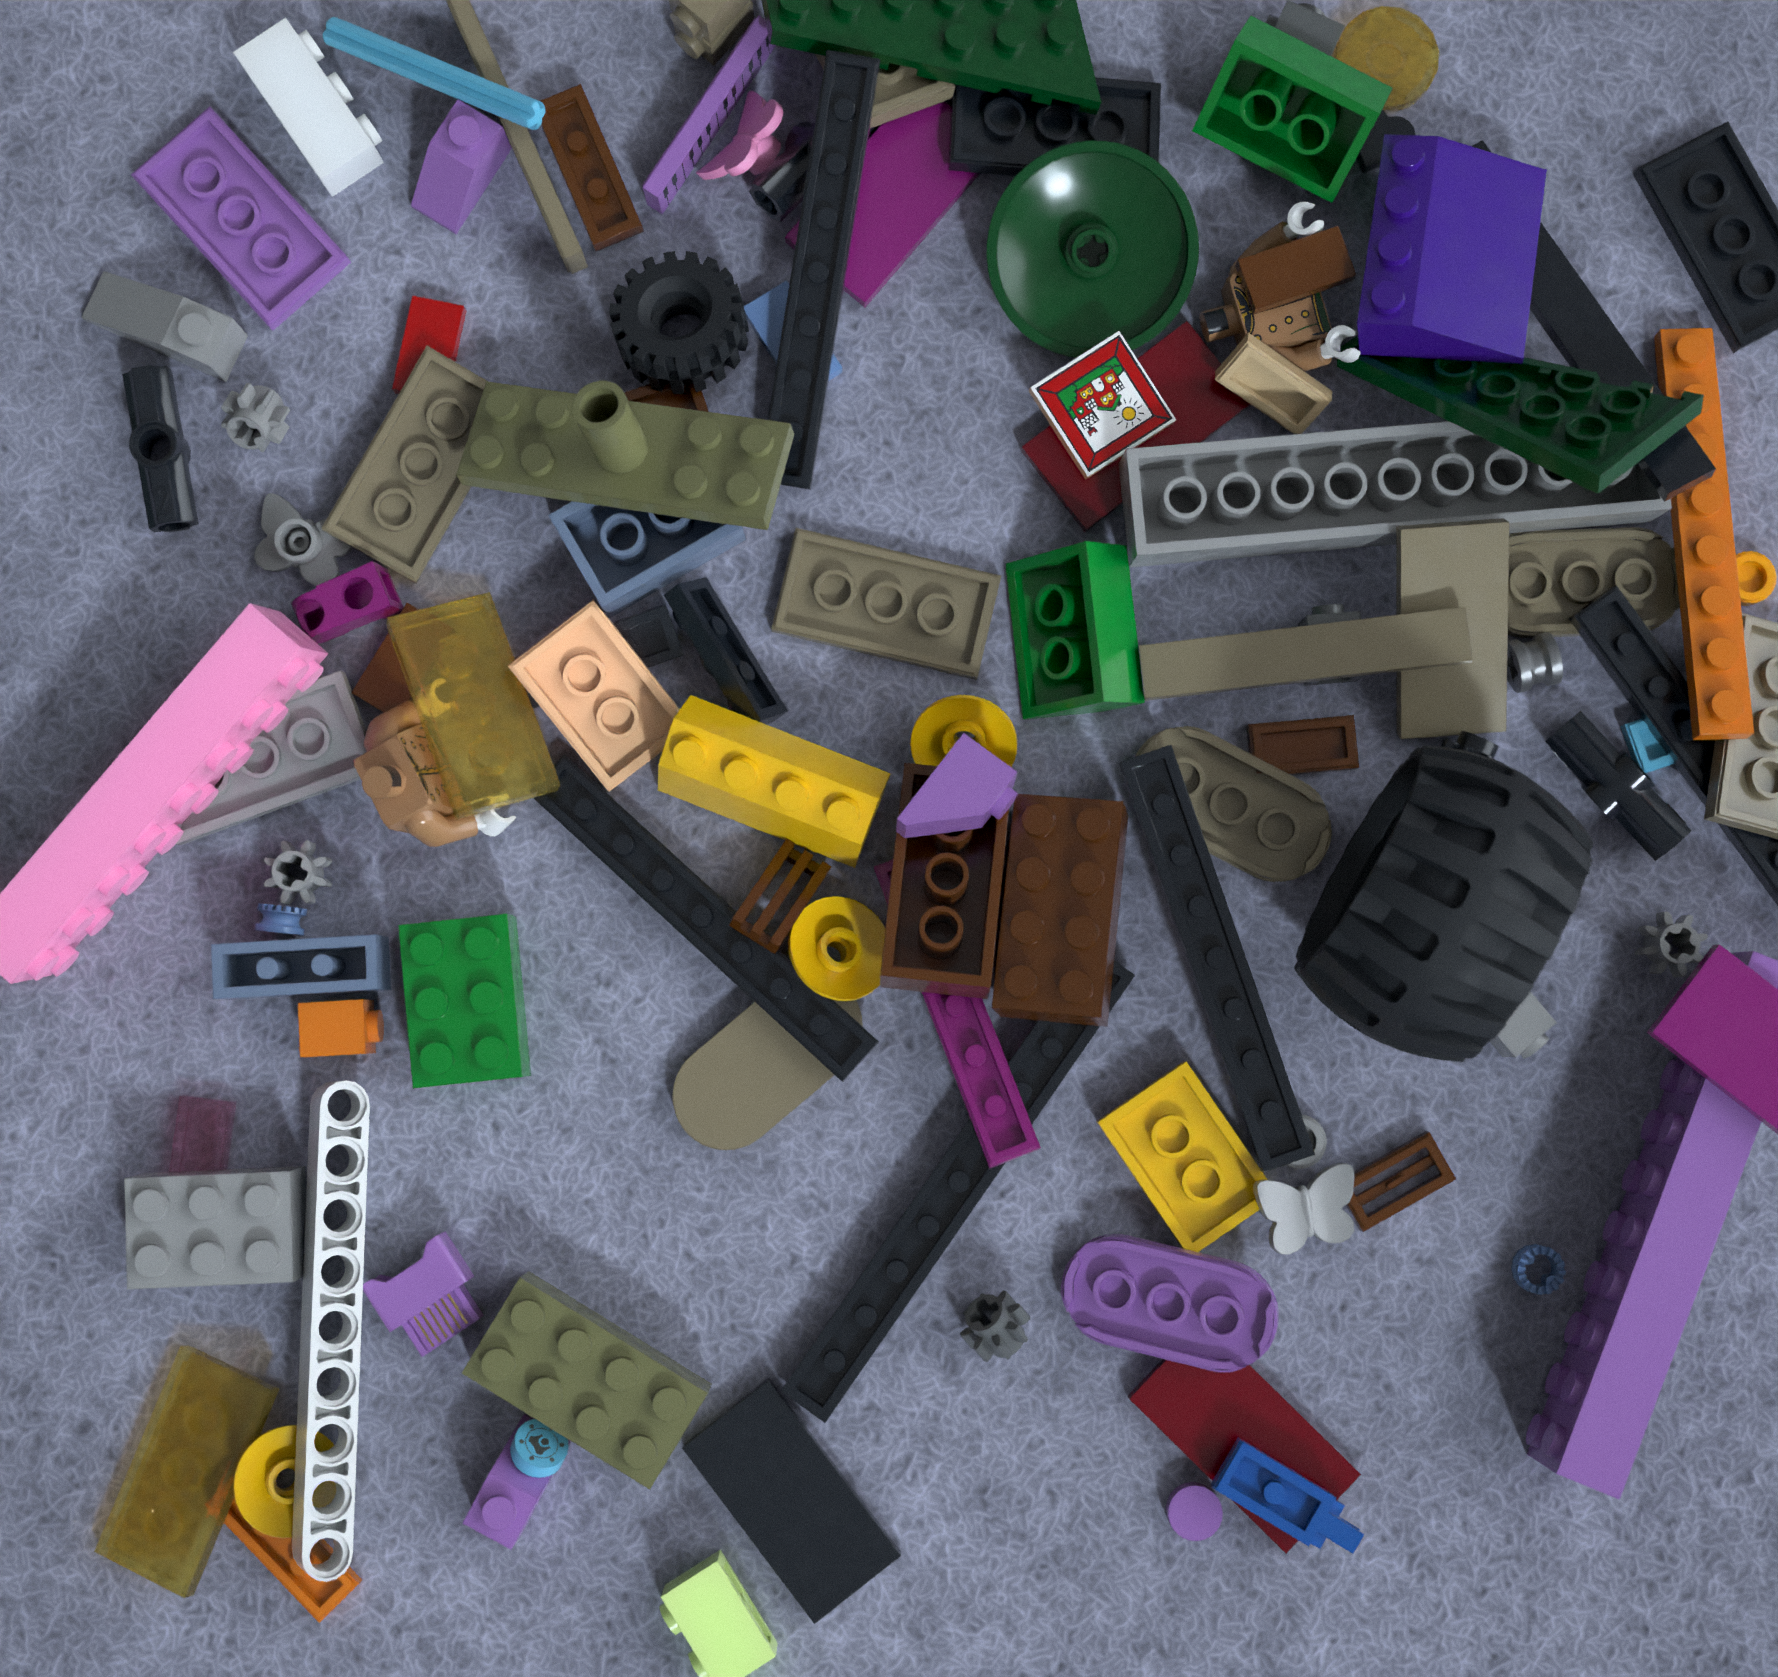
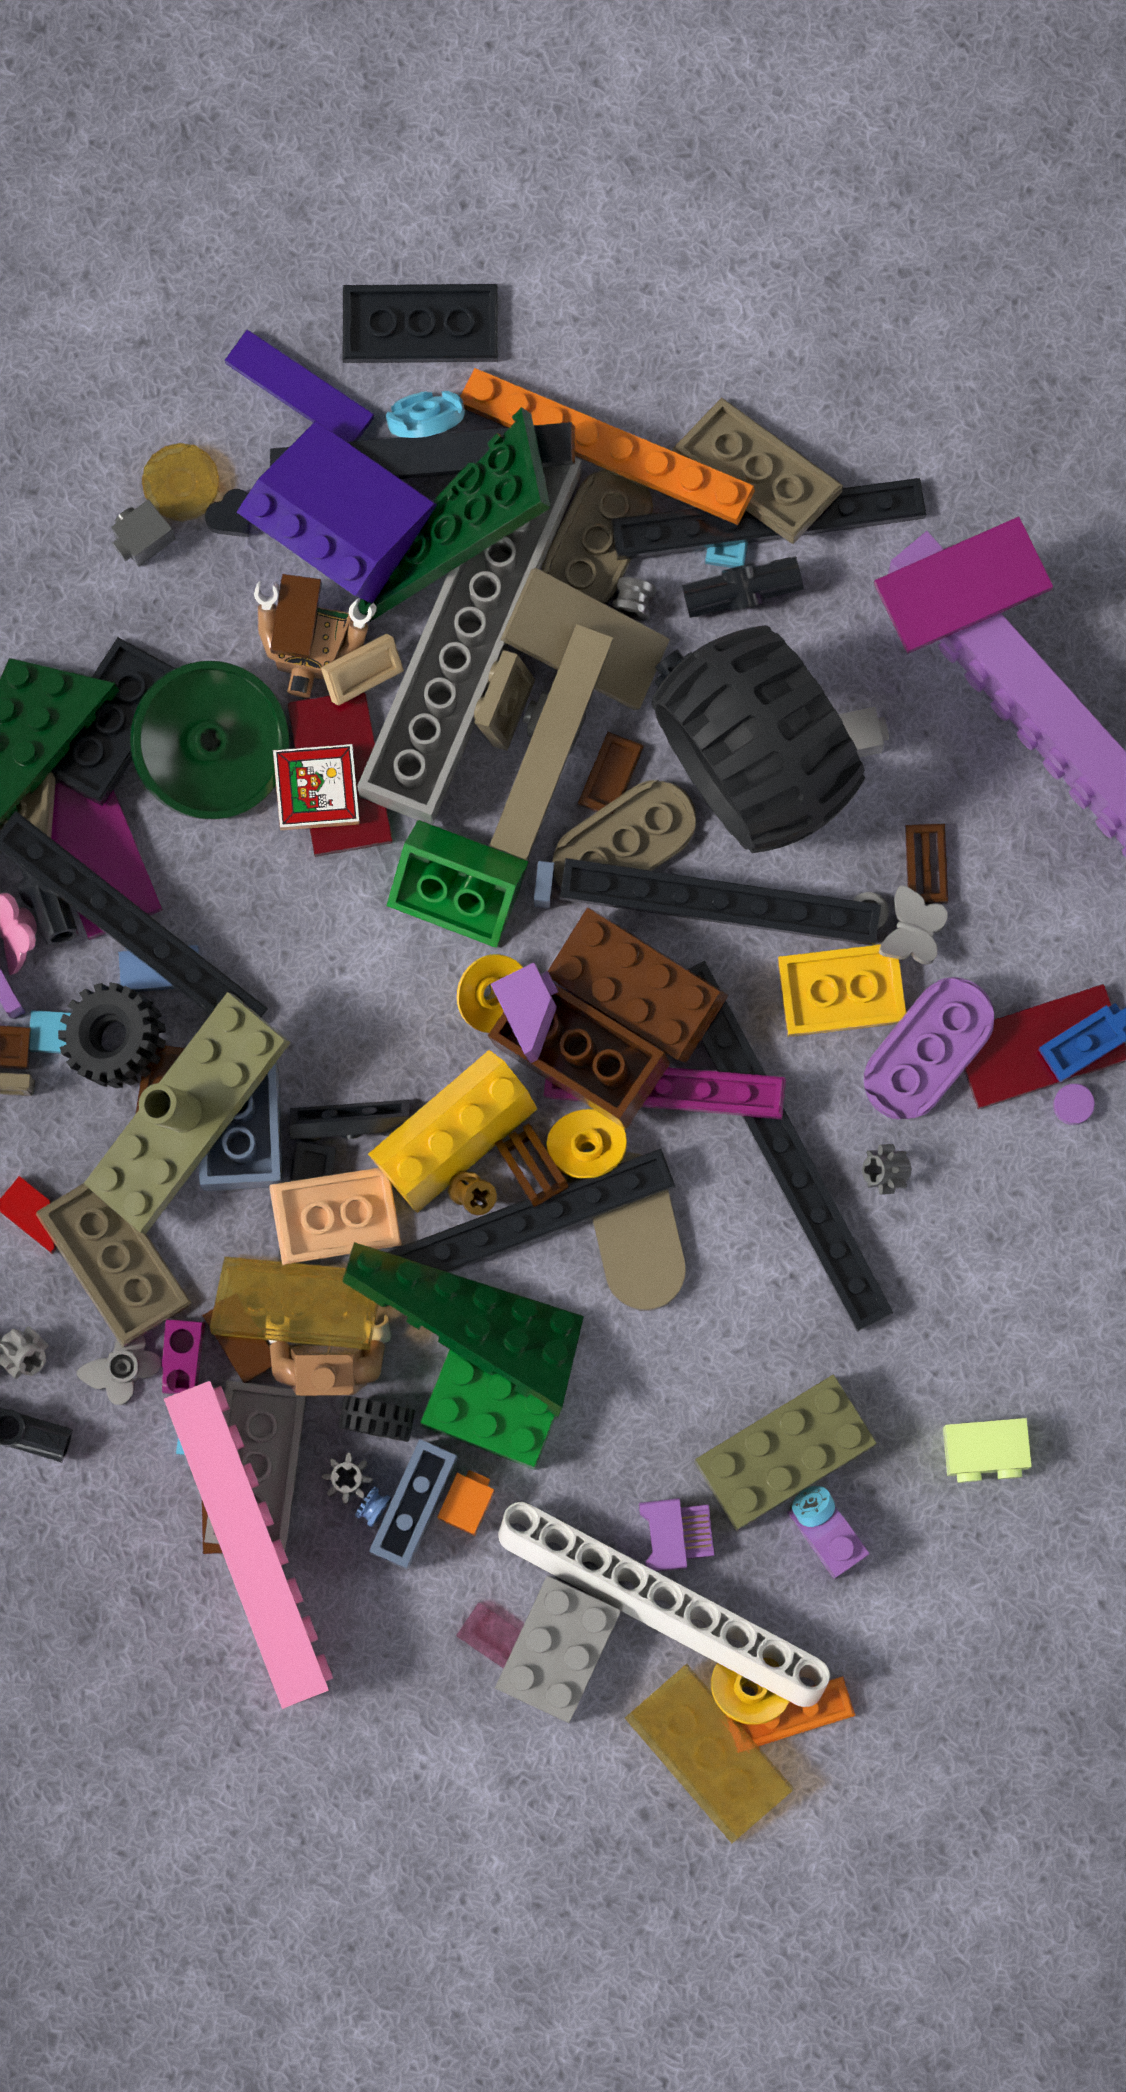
camera: 55 degrees left, 5 degrees down
(380, 871) = (376, 1418): none -> black tyre
(555, 941) = (483, 1324): none -> dark green wing
(649, 242) = (44, 1031): none -> medium azure tile
(715, 844) = (468, 1194): none -> pearl gold bush
(791, 1500) = (933, 1362): black tile -> none
(886, 603) = (371, 998): dark tan tile -> none
(1126, 735) = (544, 885): none -> sand blue tile
(1291, 108) = (187, 562): green brick -> none
(1326, 570) = (505, 699): none -> dark tan plate
(1550, 1281) = (1018, 804): medium blue bush -> none
(1574, 134) = (298, 387): none -> dark purple tile
(1624, 296) = (425, 415): none -> medium azure tile
(1657, 949) = (861, 617): light grey gear -> none
(1755, 577) = (653, 428): light orange tile -> none

